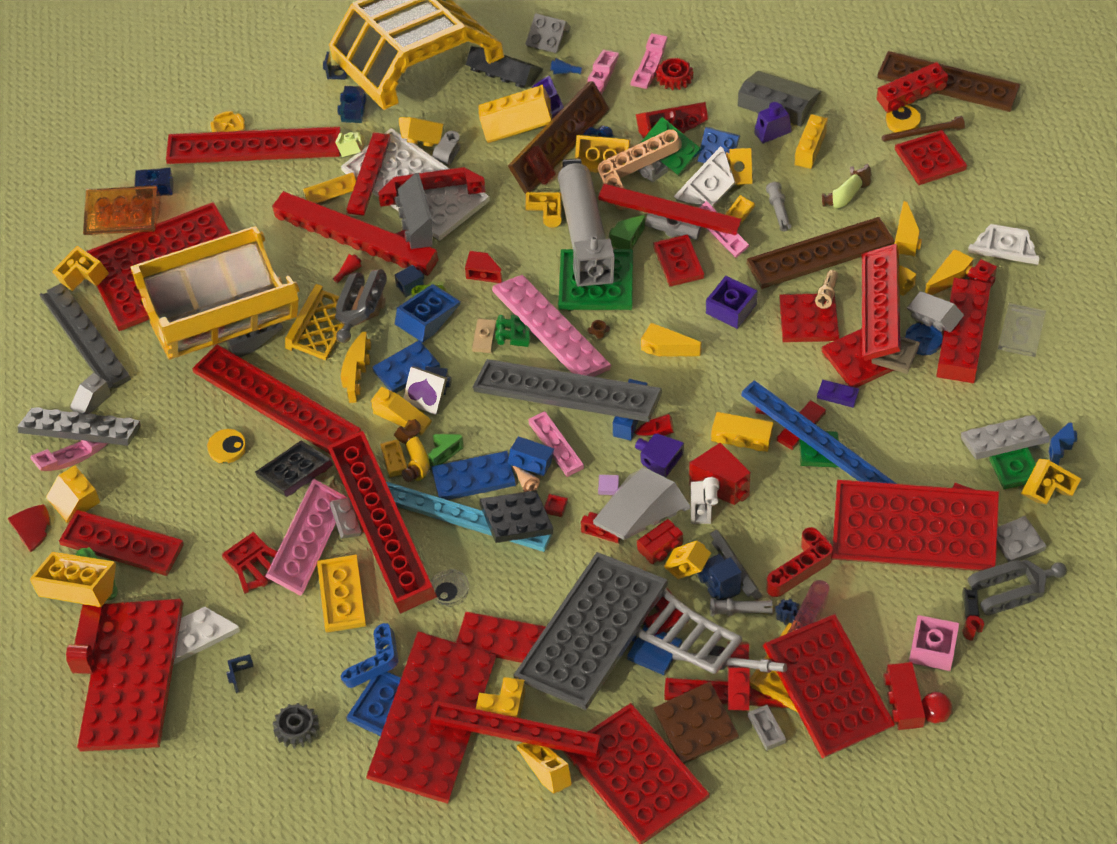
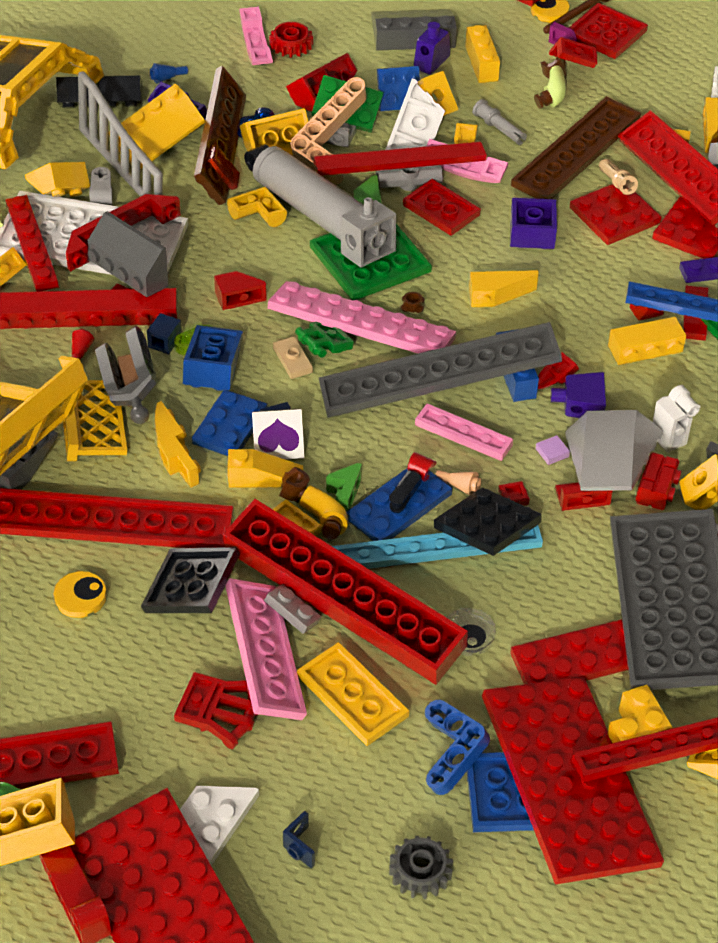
camera: 35 degrees left, 5 degrees down
(475, 113) = (116, 130): none -> light grey bar
(495, 456) = (417, 470): none -> black piece
(530, 456) = (453, 453): blue brick -> none
(546, 33) = (122, 45): light grey bracket -> none
(603, 69) = (209, 60): bright pink slope -> none
(723, 465) = (664, 374): red slope -> none
(879, 169) = (575, 52): none -> red panel
(888, 150) = (558, 30): none -> magenta plate
(907, 232) = (642, 97): yellow slope -> none

